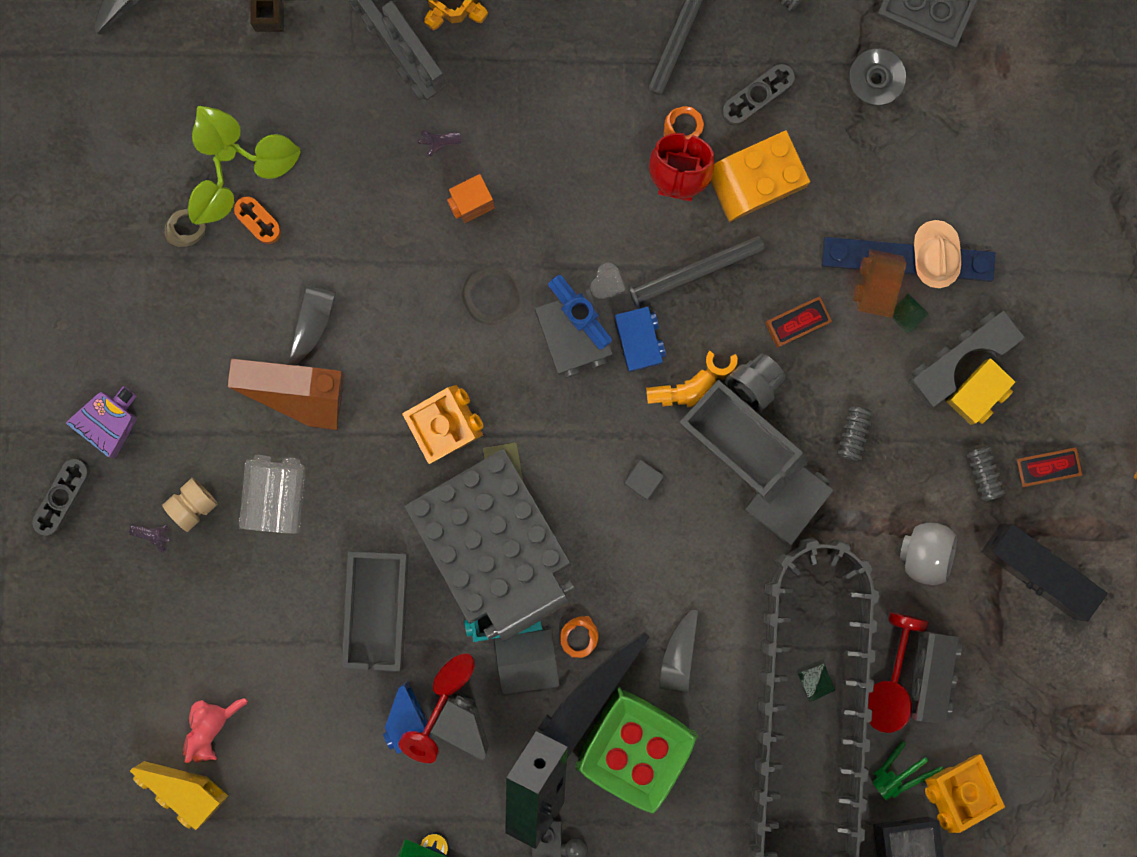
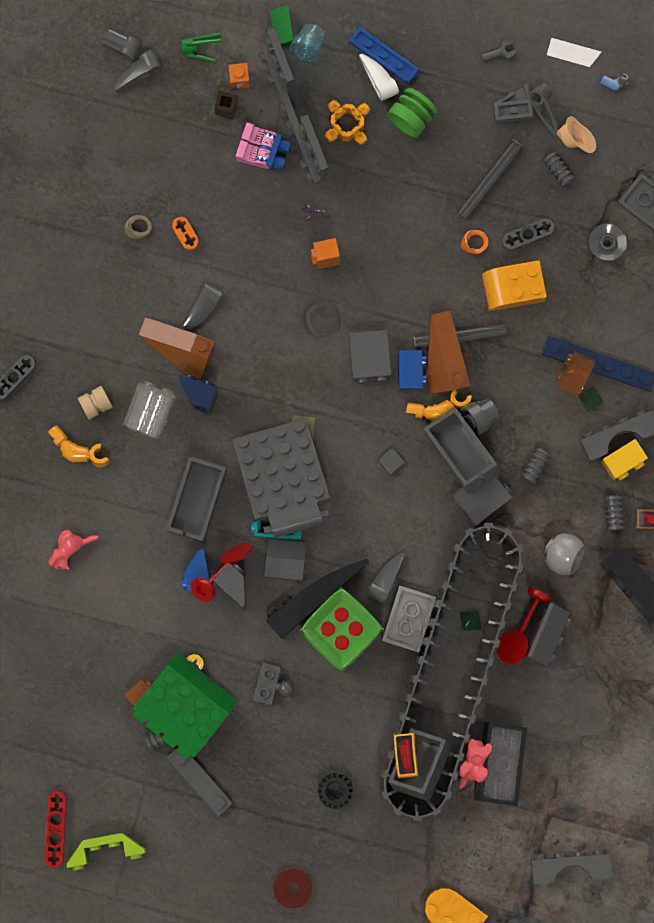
camera: 20 degrees right, 5 degrees down
(106, 421) = (55, 336): medium lavender torso -> none
(152, 535) = (66, 417): clear purple bar -> none
(179, 585) = (76, 453): none -> light orange piece
(187, 793) = (48, 588): yellow slope -> none
(215, 135) = (174, 171): lime plant -> none
(337, 64) = (262, 148): none -> hips
(338, 456) = (200, 395): none -> dark blue slope
(443, 423) = (271, 392): light orange plate -> none
(535, 789) = (270, 636): black brick -> none
(584, 621) = (333, 551): orange piece -> none
(590, 324) = (381, 350): blue axle -> none
(607, 282) = (400, 329): clear tile -> none
(681, 166) = (465, 266): red piece -> none
(685, 313) = (445, 360): none -> dark orange wedge
(727, 703) = (409, 619): none -> light grey plate
(798, 322) = (517, 385): slope -> none
(890, 785) = (501, 697): green plant -> none
(937, 254) = (618, 364): light nougat piece -> none
(963, 794) = (548, 717): light orange plate -> none

